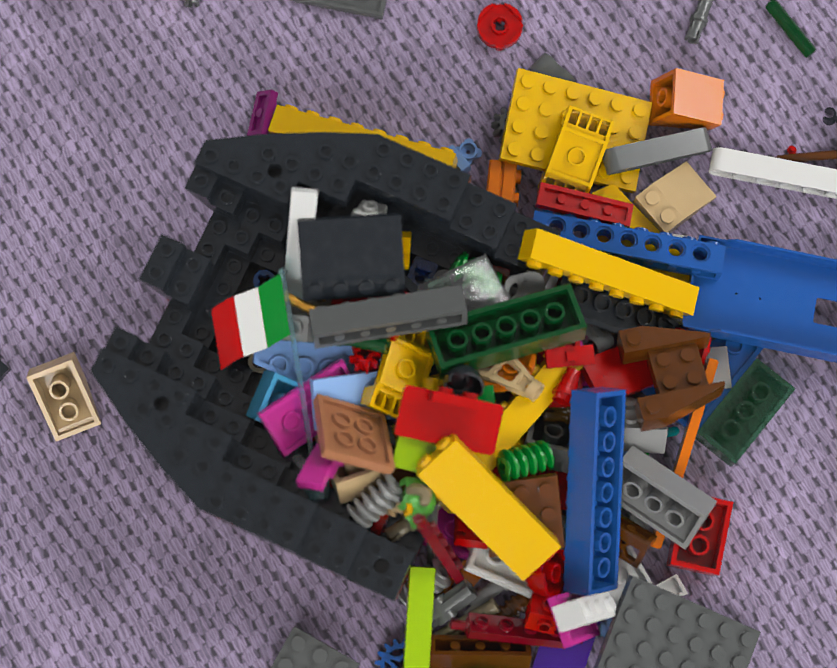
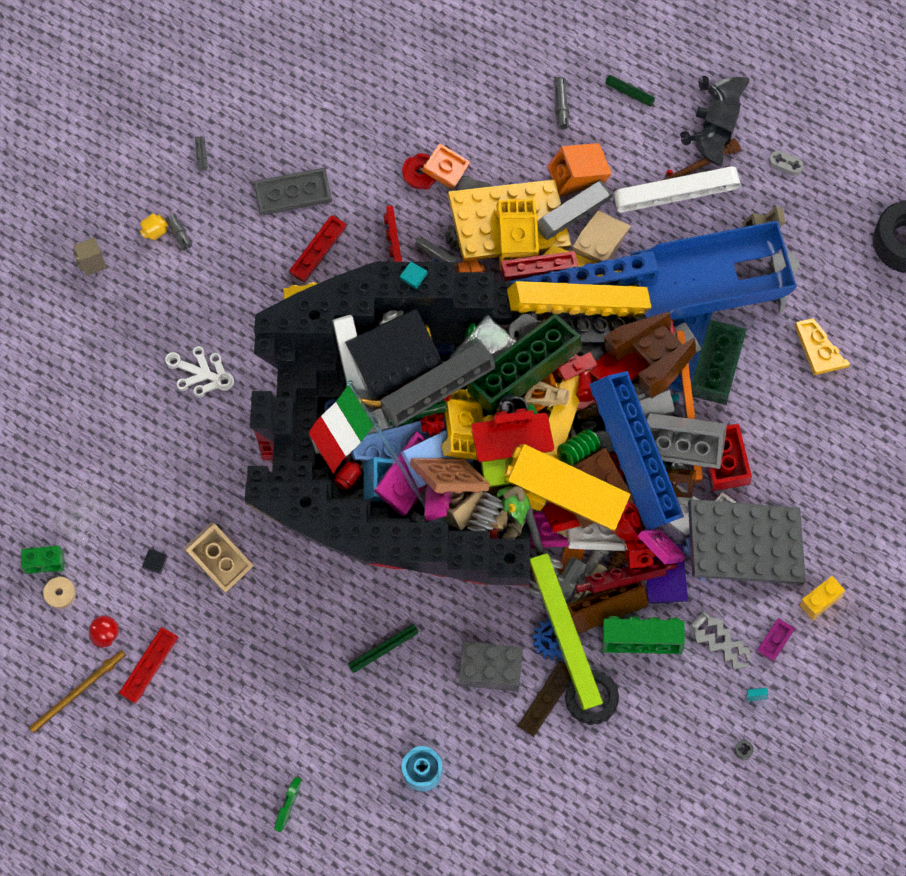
camera: 20 degrees left, 10 degrees down
(144, 166) = (201, 373): none -> white plant
(203, 587) = (383, 648): none -> dark green axle
(240, 376) = (347, 475): none -> red brick
(262, 112) = (273, 293): magenta plate -> none
(339, 71) = (317, 248): none -> red plate
(413, 172) = (413, 275): none -> teal tile
(432, 92) = (392, 235): none -> red plate
(440, 546) = (543, 530): dark red plate -> none
(473, 135) = (434, 251): none -> dark grey axle
(531, 32) = (446, 166): none -> tile
(584, 611) = (667, 534): white brick -> none

